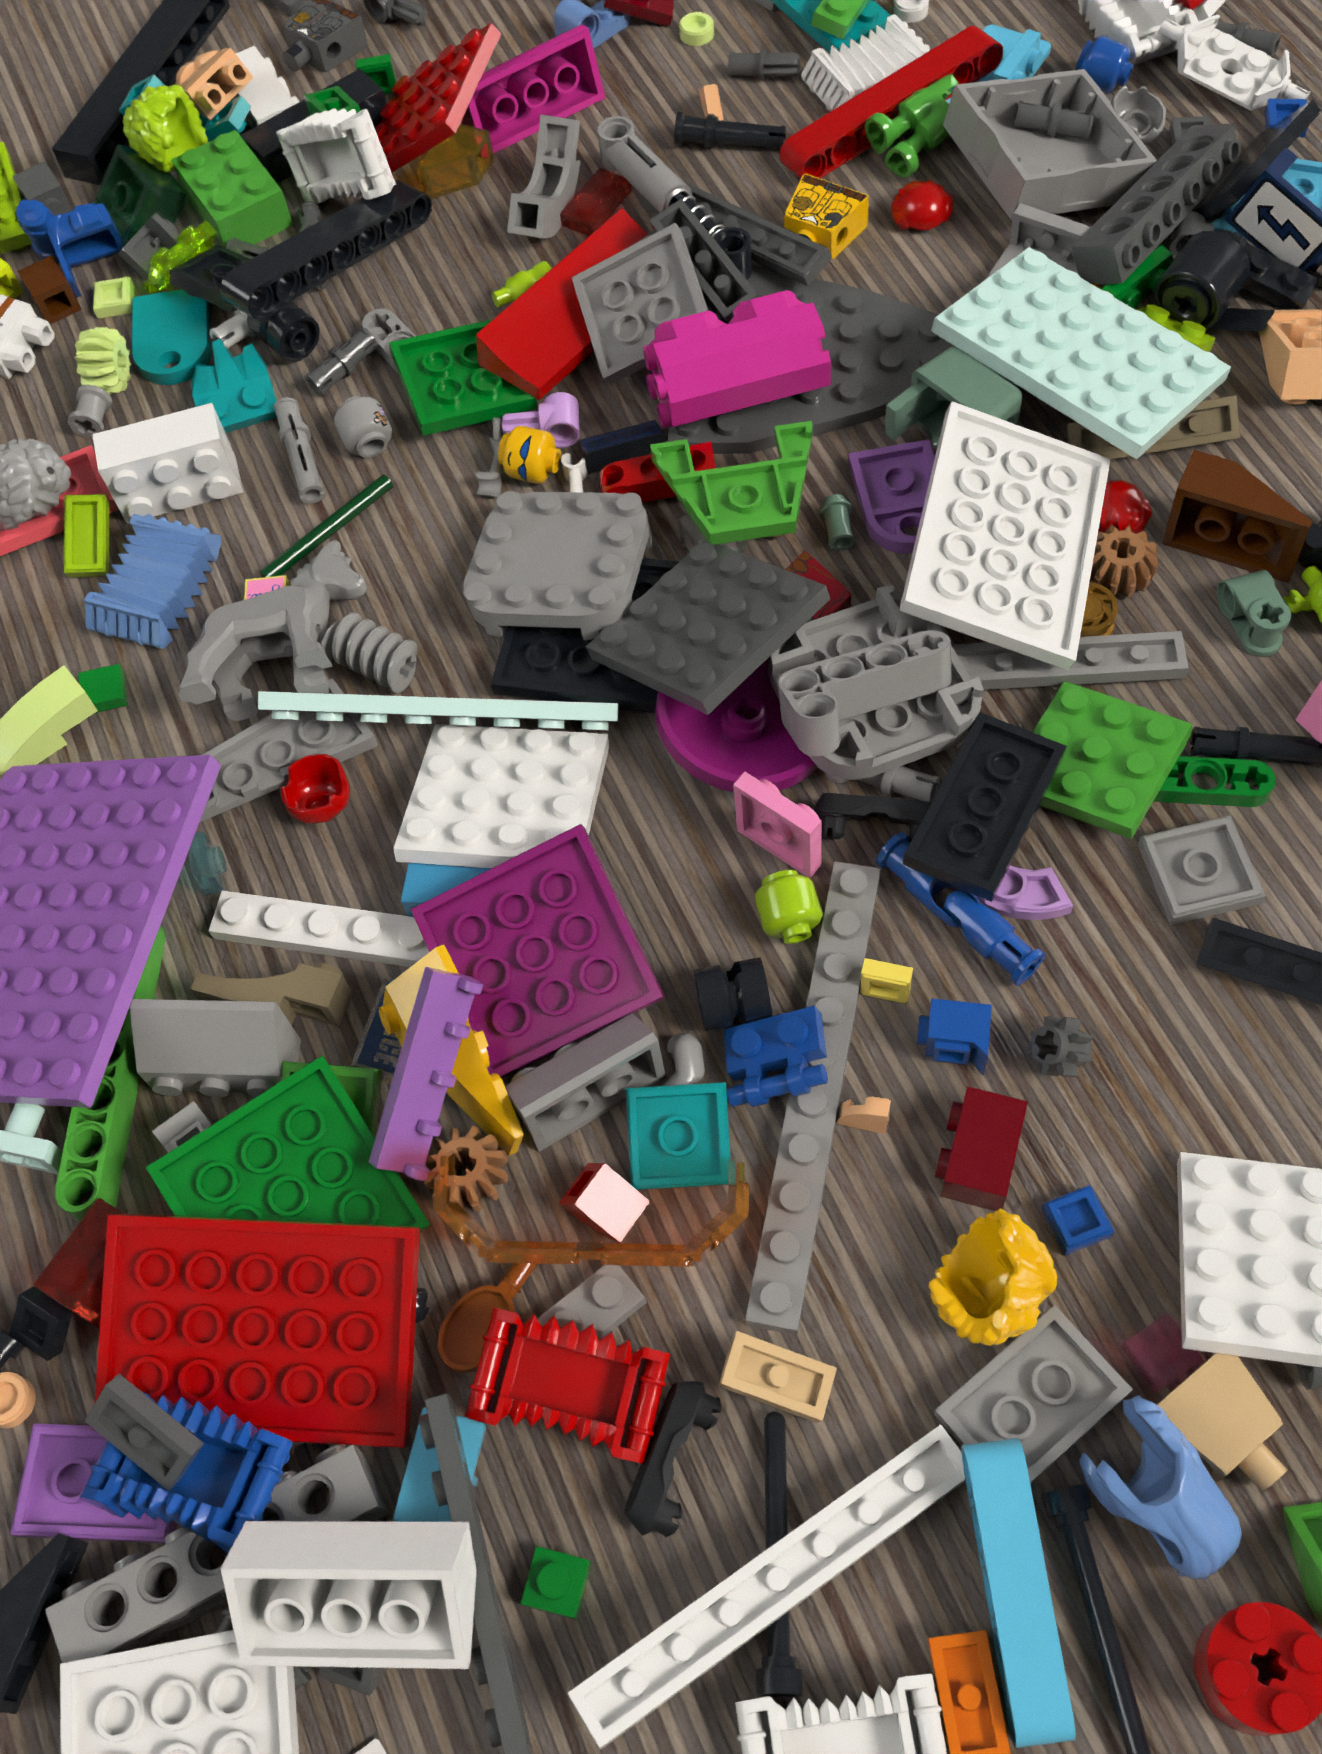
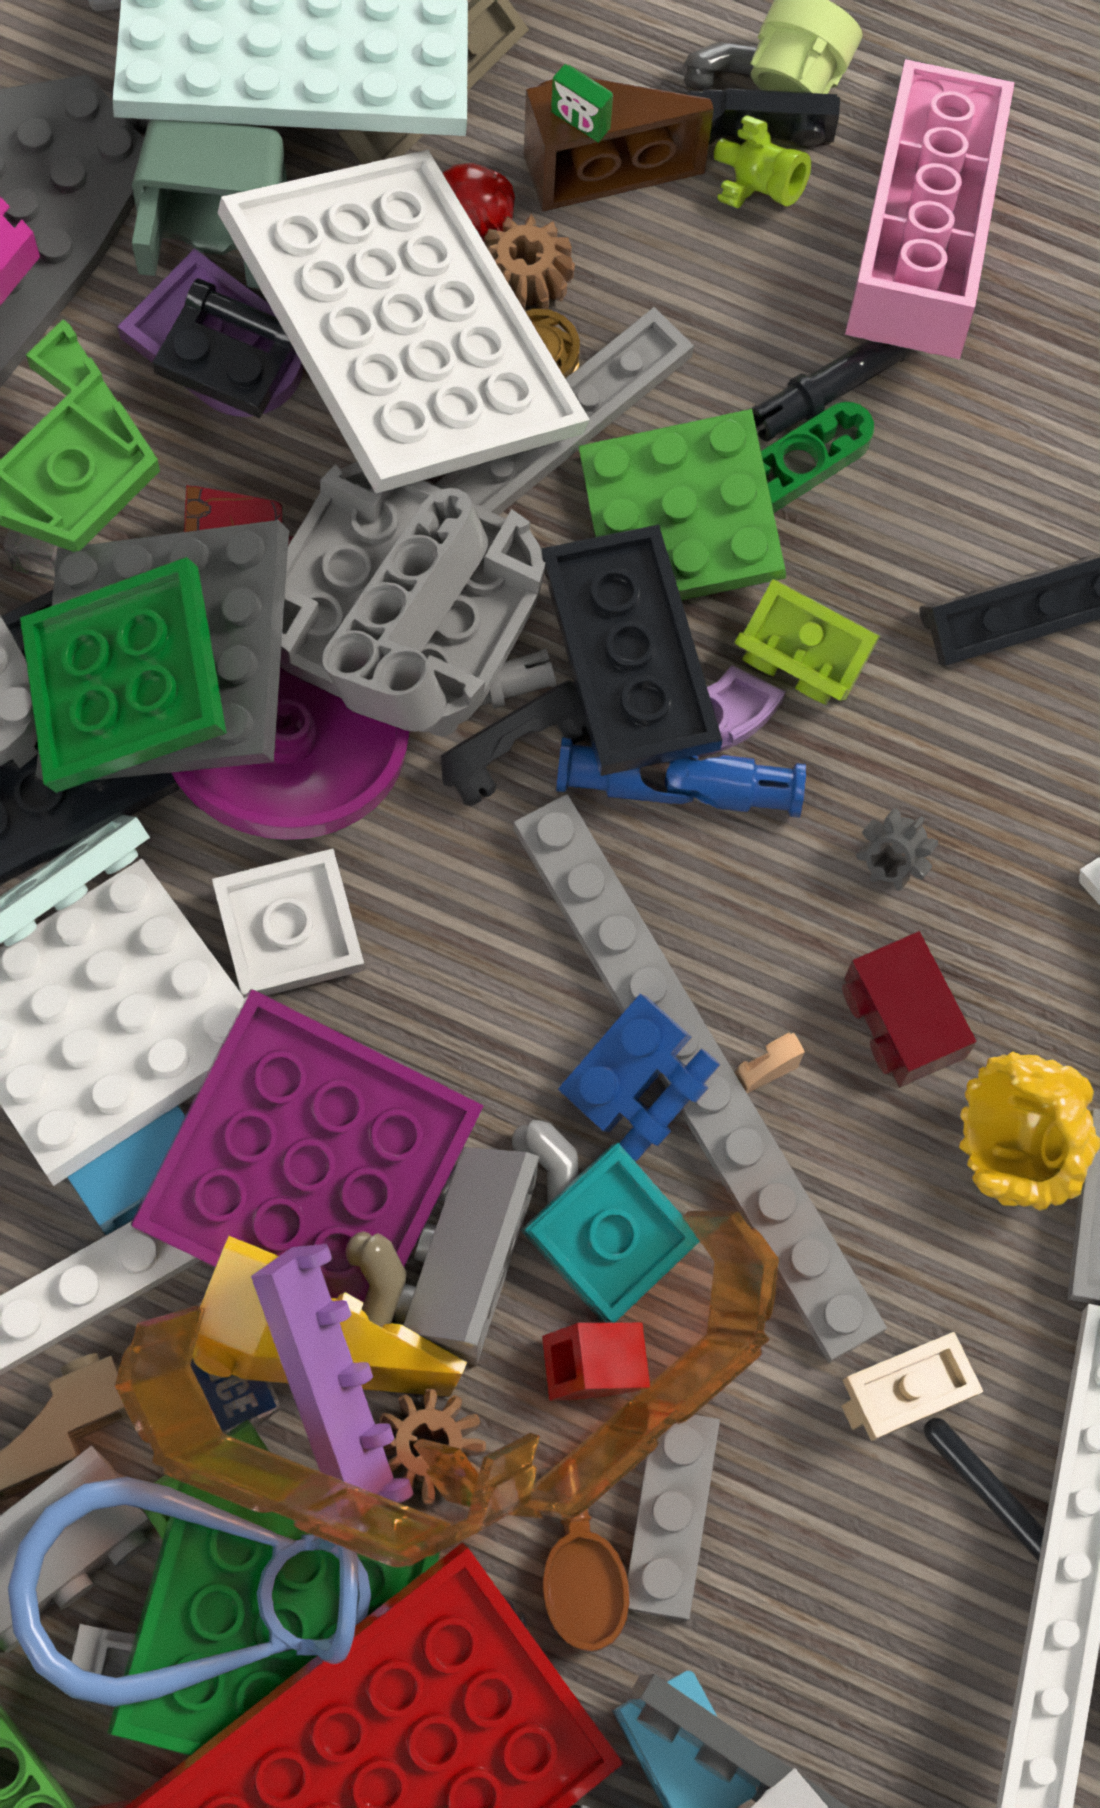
camera: 55 degrees left, 10 degrees up
(290, 1073) = (151, 1685): none -> medium blue animal
(322, 1042) = (189, 1444): none -> clear orange windscreen
(523, 1046) = (382, 1271): none -> dark tan arm
(556, 1583) = (872, 1752): green plate -> none
(568, 1381) = (731, 1558): red piece -> none
(647, 1503) = (891, 1598): black piece -> none
(654, 825) = (288, 924): none -> white plate
(667, 613) = (122, 675): none -> green plate
(733, 994) = (543, 1041): black wheel -> none
(778, 824) = (434, 826): bright pink plate -> none
(788, 906) = (513, 907): lime head -> none
(835, 513) = (167, 412): sand green pin -> none
(885, 502) = (221, 364): none -> black plate
(886, 980) = (677, 910): light yellow tile -> none
(956, 1032) = (789, 912): blue window -> none
(1077, 1220) = (1041, 1009): blue tile -> none
(1111, 886) = (806, 642): none -> lime bracket
(1201, 870) = (870, 561): light grey tile -> none
(1219, 470) = (581, 102): none -> green tile
(1254, 611) = (700, 227): sand green piece -> none

